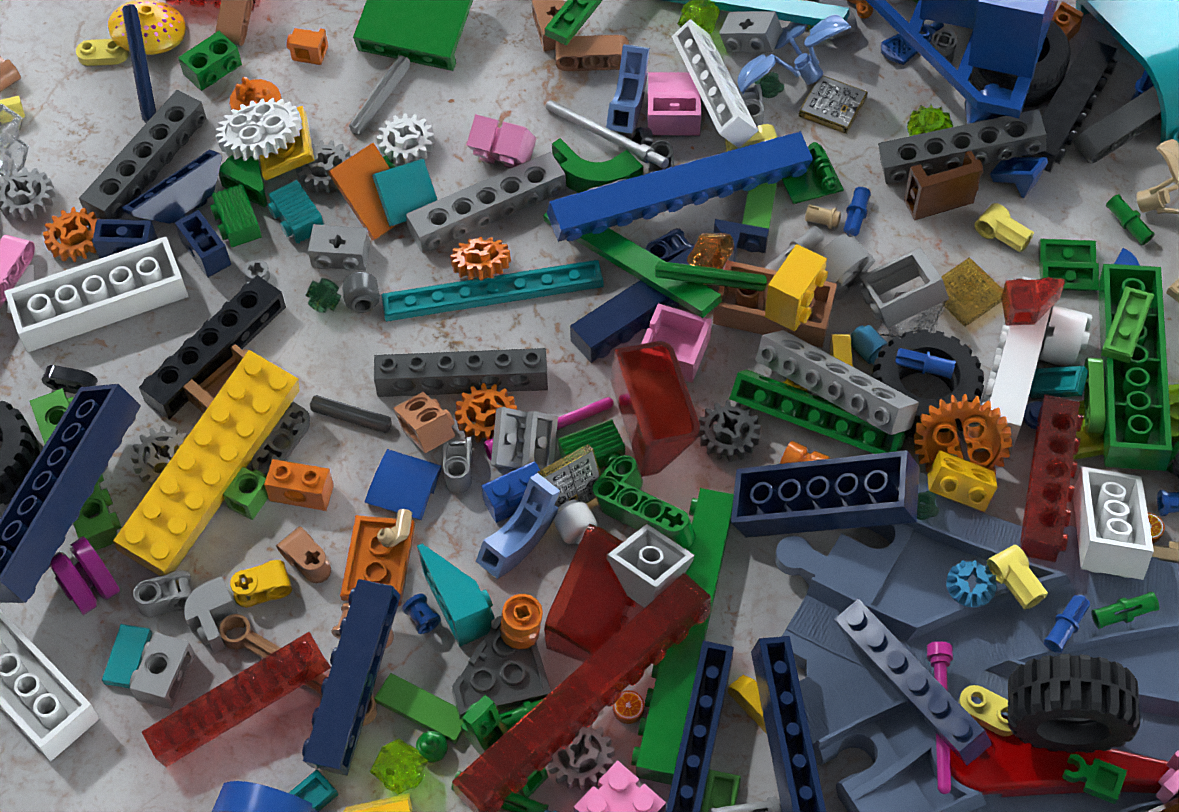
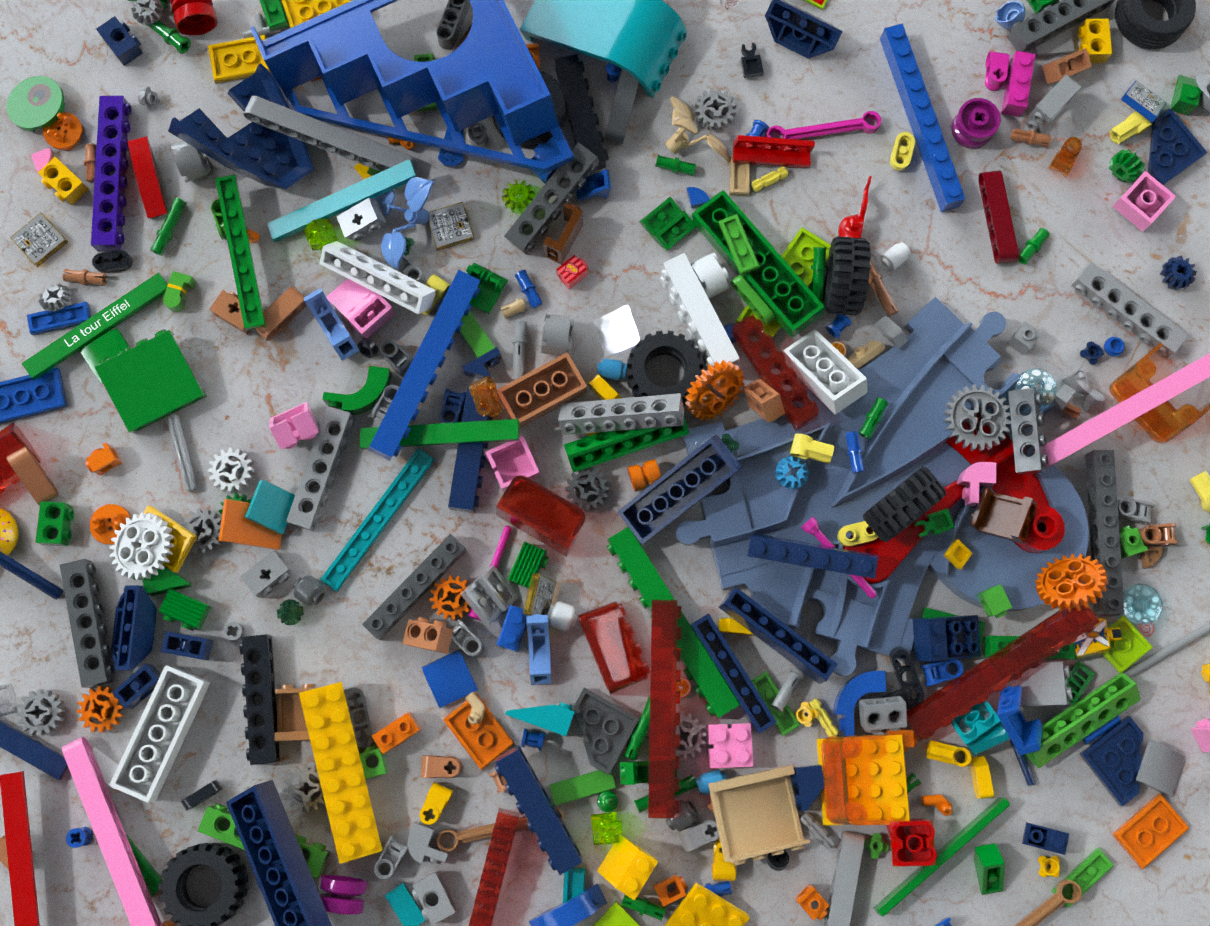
camera: 50 degrees left, 20 degrees up
(294, 210) = (216, 574): teal brick -> none
(350, 413) = (378, 665): dark grey axle -> none
(480, 258) = (355, 508): orange gear -> none
(521, 621) = (593, 699): orange wheel -> none
(622, 499) = (592, 577): green beam -> none
(643, 152) = (382, 360): light grey bar -> none
(648, 564) = (627, 609): light grey slope -> none
(710, 276) = (501, 412): green axle -> none
(793, 287) = (556, 381): yellow brick -> none
(895, 274) = (587, 315): light grey window -> none
(918, 229) = (572, 271): none -> coral brick
(925, 362) = (660, 364): blue axle -> none
(962, 481) = (733, 413): yellow brick -> none
(970, 292) = (630, 287): clear yellow tile -> none
(998, 224) = (610, 230): light yellow piece -> none
(1011, 497) = (764, 400): none -> nougat brick
(1029, 300) = (682, 279): clear red slope -> none
(1058, 382) = (730, 305): teal tile -> none

